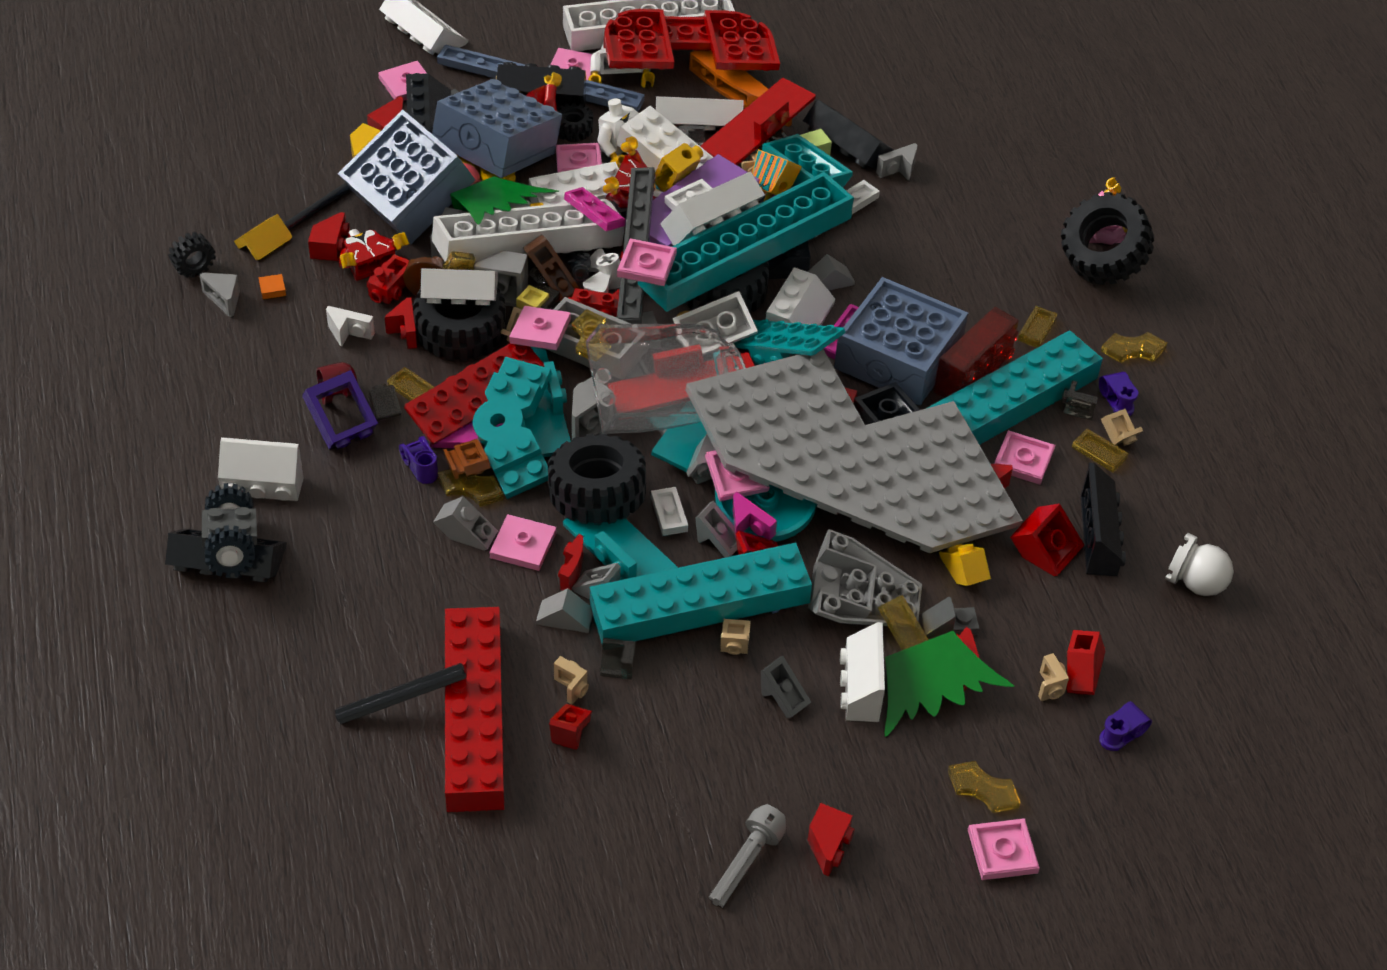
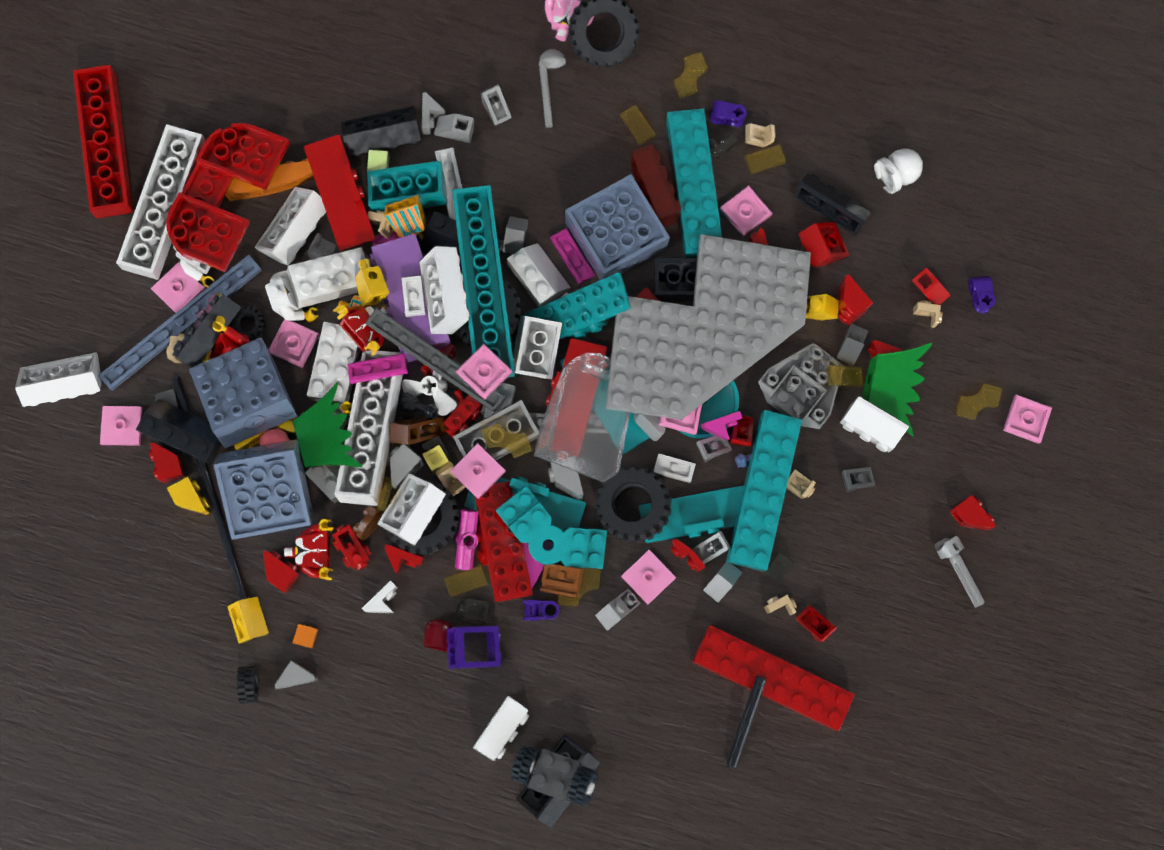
camera: 65 degrees left, 30 degrees up
(444, 366) = (467, 527): none -> dark pink piece
(903, 186) = (455, 127): none -> light grey slope
(955, 203) = (495, 105): none -> light grey slope
(995, 585) = (852, 301): none -> red slope
(1040, 225) = (549, 60): none -> light grey piece

